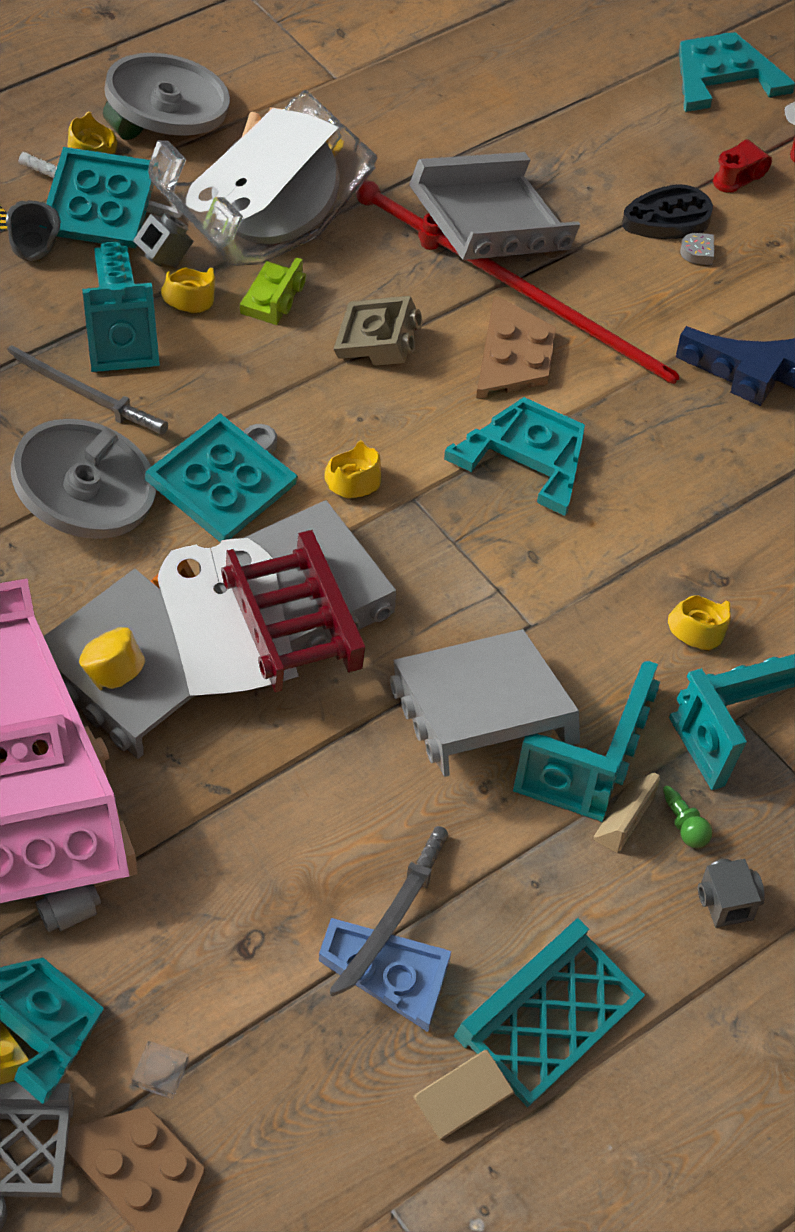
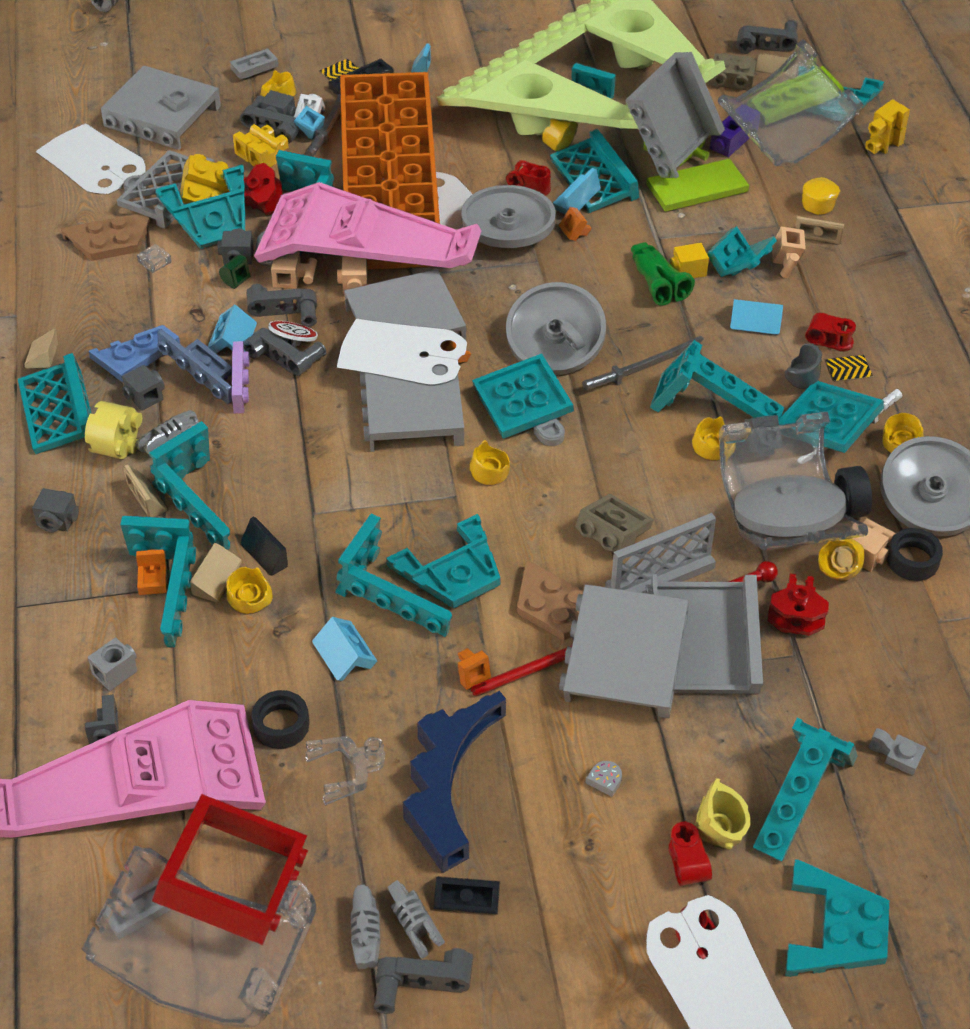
camera: 120 degrees right, 5 degrees down
(87, 948) = (236, 243): none -> dark grey brick
(112, 658) = (396, 286): yellow hair -> none
(142, 923) = (235, 271): none -> dark green brick
(194, 852) = (267, 303): none -> dark grey beam
(207, 136) = (857, 490): none -> black tyre
(240, 778) = (293, 331): none -> white piece
(259, 85) = (910, 569): none -> black tyre
(265, 158) = (802, 488): white piece -> none
(273, 291) = (690, 487): lime bracket -> none
(278, 865) = (231, 327): none -> medium azure panel
(279, 807) = (281, 352): none -> dark grey beam
(318, 586) = (377, 388): dark red fence -> none
(364, 803) = (240, 377): none -> lavender plate
(367, 858) = (201, 363): none -> sand blue bracket
(397, 156) = (798, 605): none -> red hinge
(410, 273) = (675, 565): none -> light grey fence
(417, 876) = (177, 383): flat silver sword -> none
(453, 912) = (143, 387): none -> dark grey brick
(482, 696) = (255, 437): light grey panel -> none
(516, 836) = (166, 431): none -> light grey hinge
(519, 66) = (901, 753): none -> light grey plate
(564, 253) = (625, 647): none -> light grey panel
(570, 882) = (113, 430): none -> light yellow brick
(584, 75) = (799, 787): none -> teal bracket
(598, 516) = (384, 594): none -> teal bracket
(626, 638) = (264, 547): none -> black slope
(657, 379) = (473, 668): none -> orange tile
(668, 213) = (643, 773): black piece -> none
(674, 670) = (212, 575): none -> tan slope
(694, 147) = (722, 816): none -> light yellow helmet
(694, 830) = (107, 516): bright green bar -> none
(710, 499) = (343, 648): none -> medium azure panel
(756, 724) = (151, 572): none -> orange bracket

